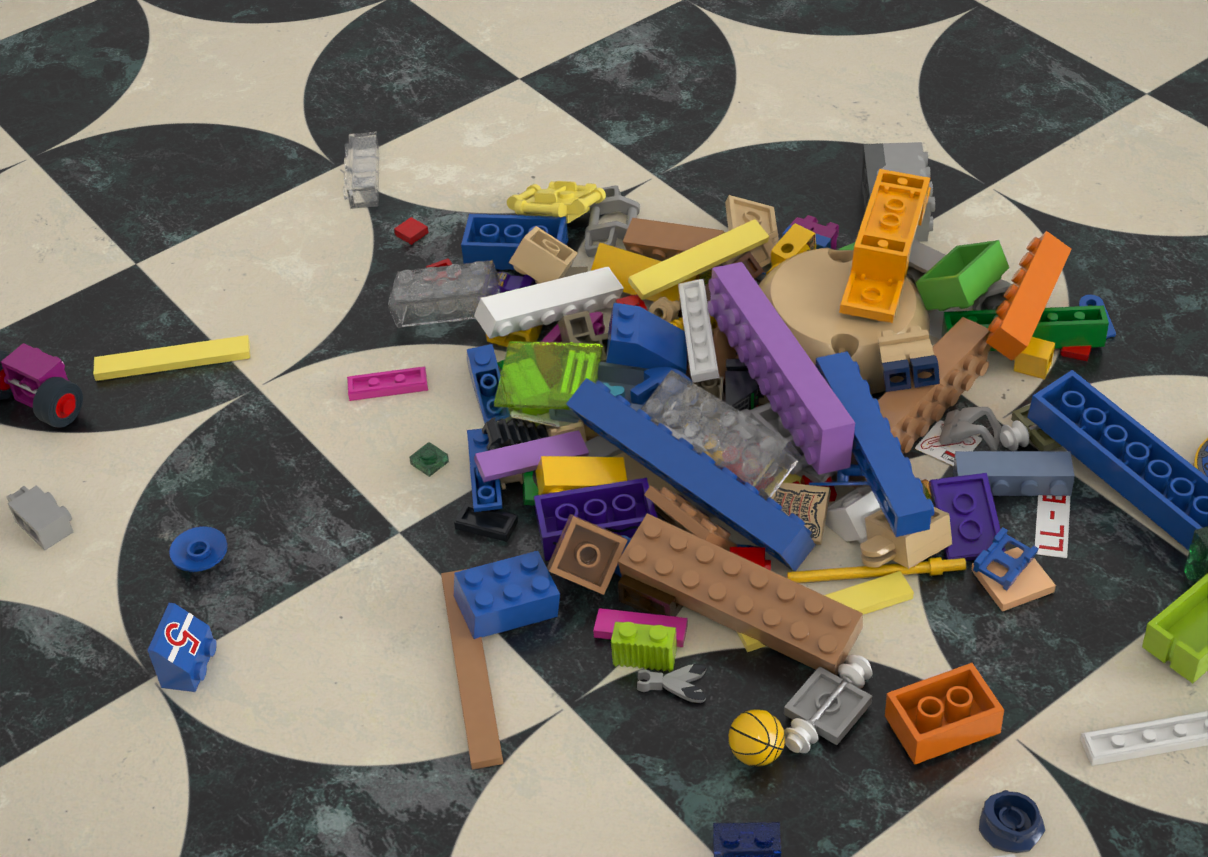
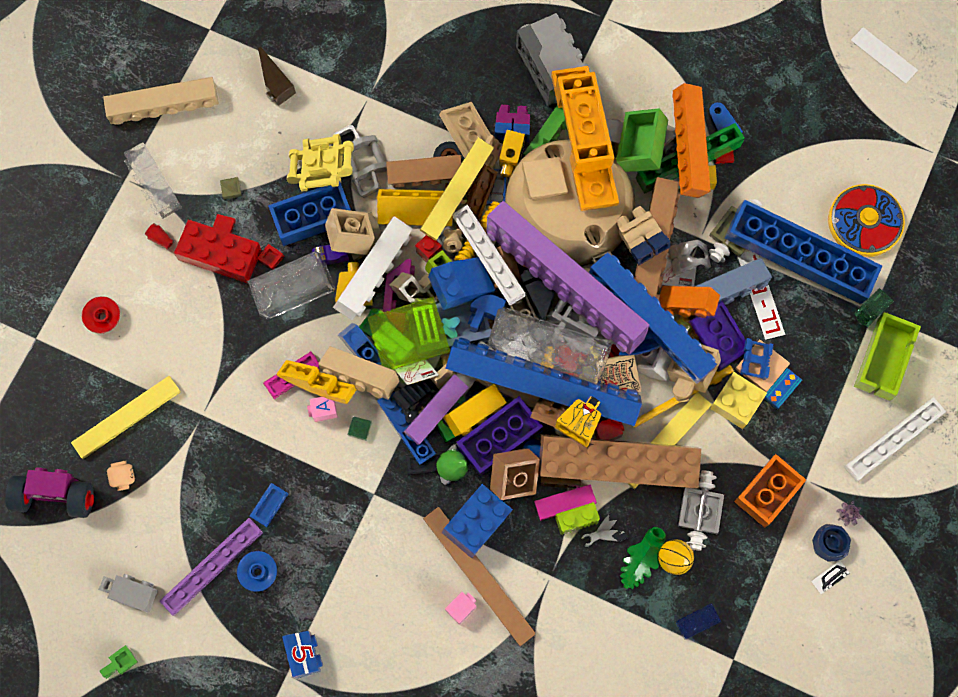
camera: 30 degrees left, 30 degrees up
(121, 402) = (120, 475): none -> light nougat head
(149, 530) = (211, 567): none -> medium lavender tile
(217, 259) = (95, 308): none -> red dish
(265, 494) = (268, 505): none -> blue tile
(332, 214) = (157, 235): none -> red cone
(384, 242) = (217, 251): none -> red brick
(398, 421) = (322, 409): none -> bright pink brick
(405, 386) = (314, 381): none -> yellow slope
(422, 685) = (461, 607): none -> bright pink brick
(423, 111) = (161, 100): none -> tan brick
(443, 203) = (230, 188): none -> olive tile
(463, 393) = (359, 372): none -> tan brick
(516, 532) = (452, 465): none -> bright green hat
(557, 129) = (277, 84): none -> dark brown slope
(704, 508) = (580, 420): none -> yellow torso
(708, 731) = (643, 557): none -> green plant
(811, 268) = (544, 178): none -> tan tile
(943, 456) = (689, 300): none -> orange brick
(953, 597) = (738, 400): none -> light yellow brick
(1029, 612) = (782, 388): none -> blue tile
(1056, 792) = (845, 516): none -> clear purple gear

